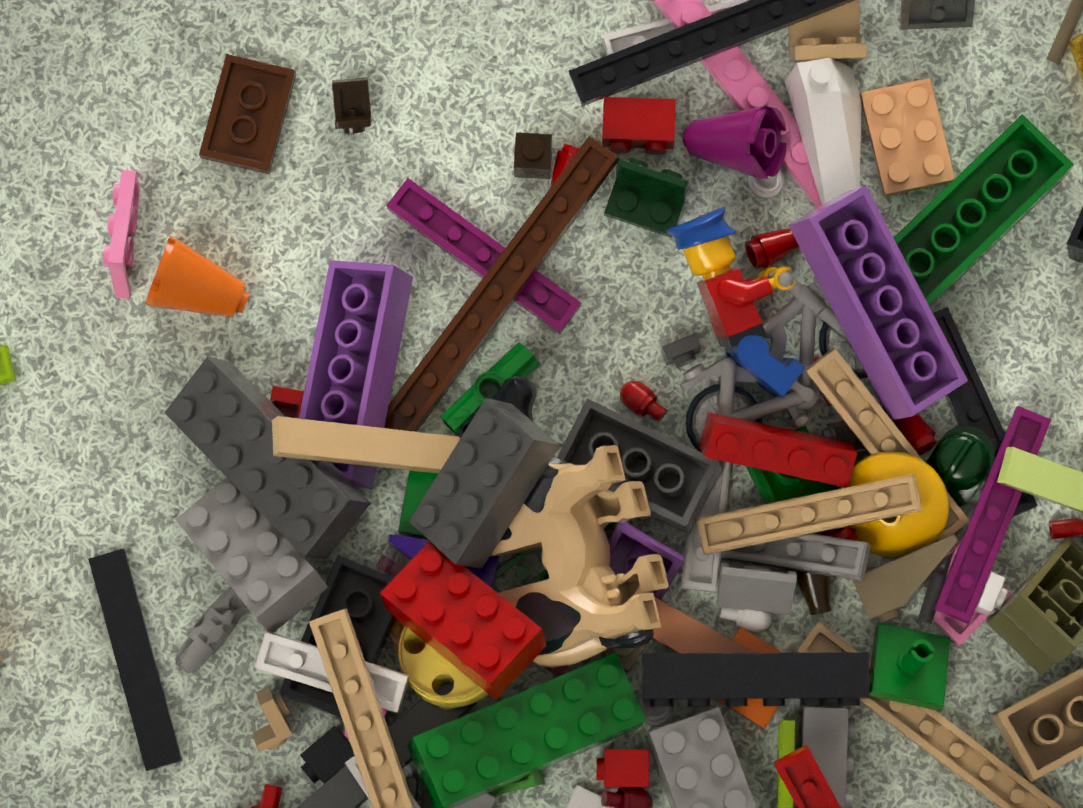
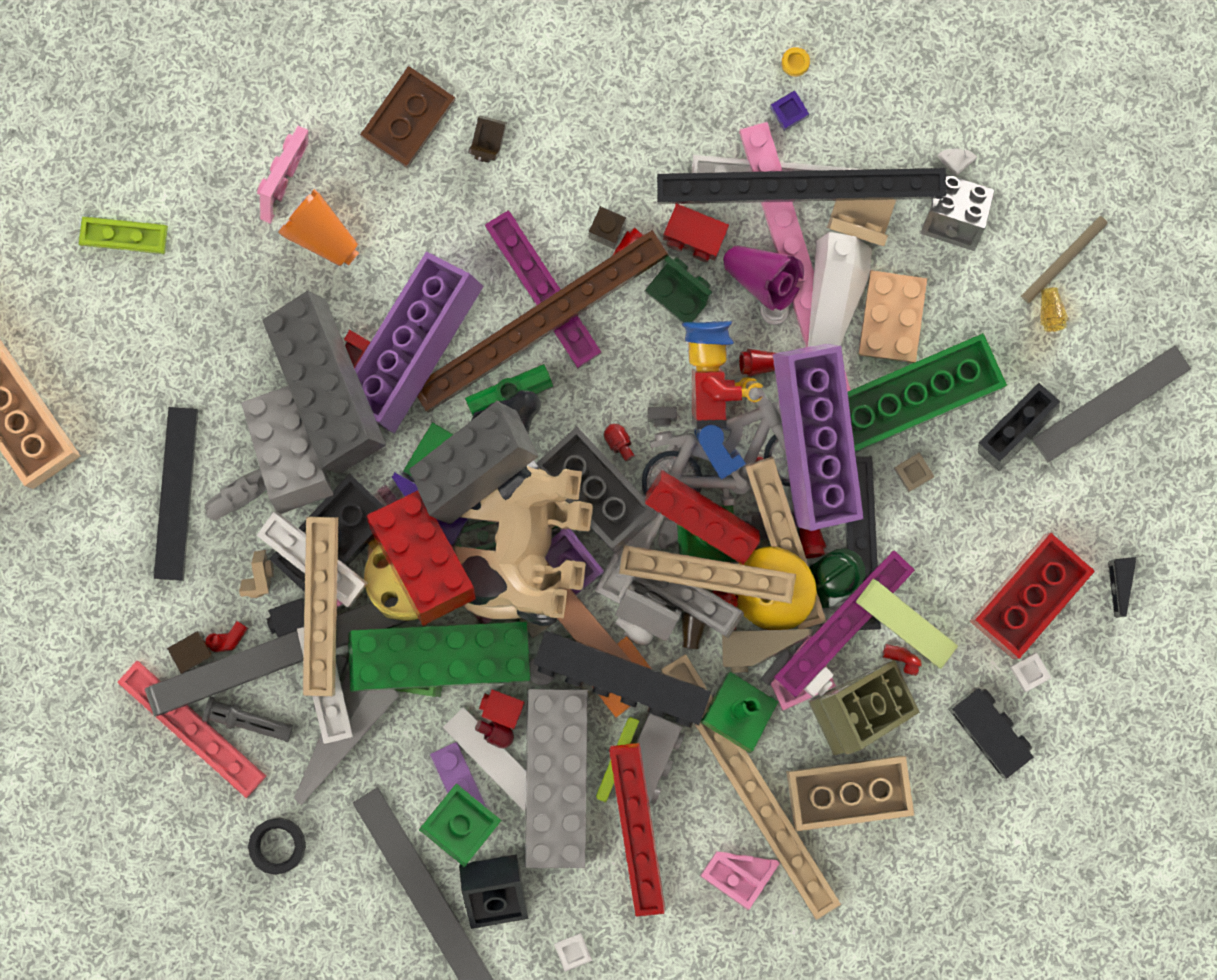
camera: 15 degrees right, 5 degrees up
(361, 444) = (394, 399): tan tile -> none
(741, 486) = (667, 534): none -> light grey tile
(1003, 308) = (913, 472): none -> dark tan plate

